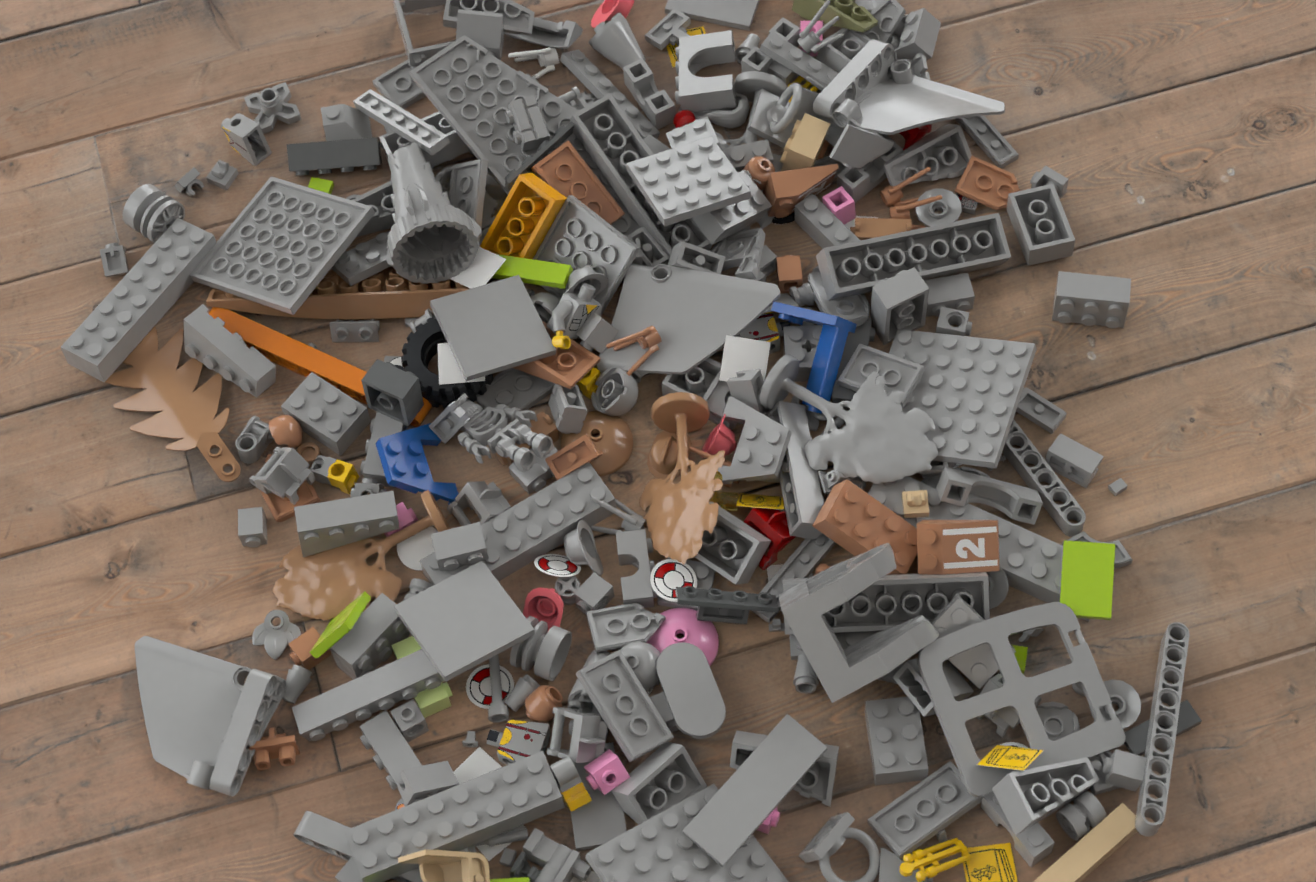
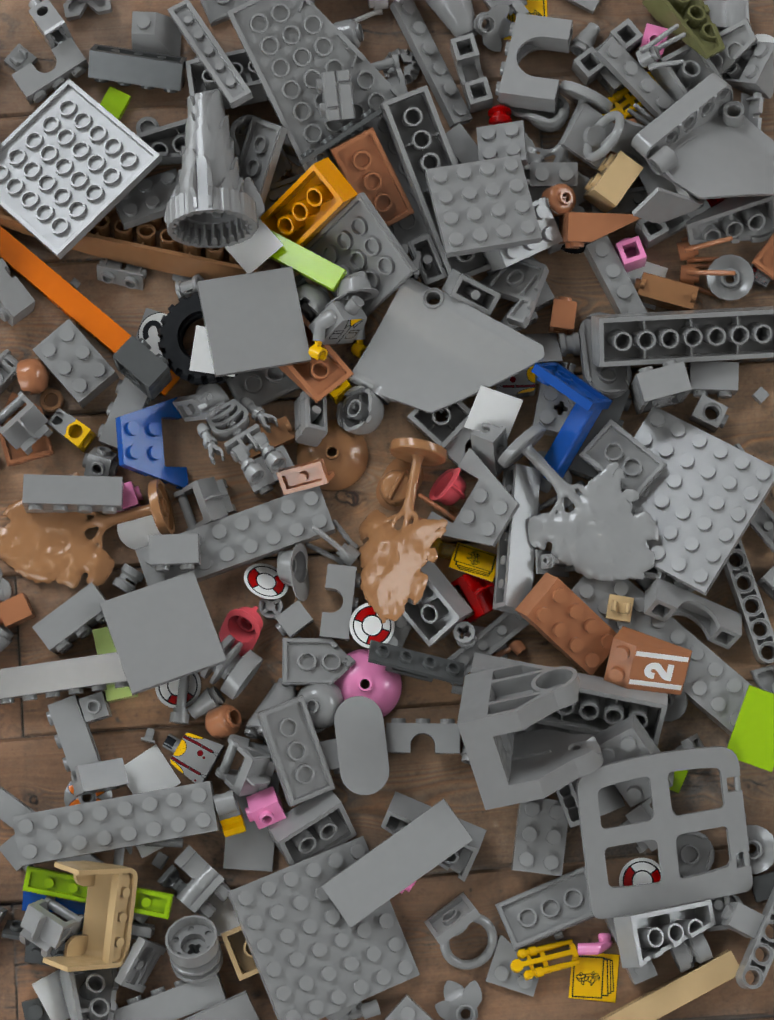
camera: 10 degrees right, 20 degrees up
(241, 189) = (37, 85): none -> light grey arch
(340, 625) = (47, 603): lime tile -> none
(596, 333) = (356, 346): light grey brick -> none
(646, 338) = (403, 367): nougat plant -> none
(663, 54) = (496, 27): none -> light grey plate
(769, 566) = (463, 627): none -> light grey bush
(770, 667) = (444, 734): none -> light grey arch
(982, 838) = (597, 947): none -> bright pink arm
(997, 302) = (760, 395): none -> light grey piece
(1010, 757) = (638, 891): yellow sticker -> none

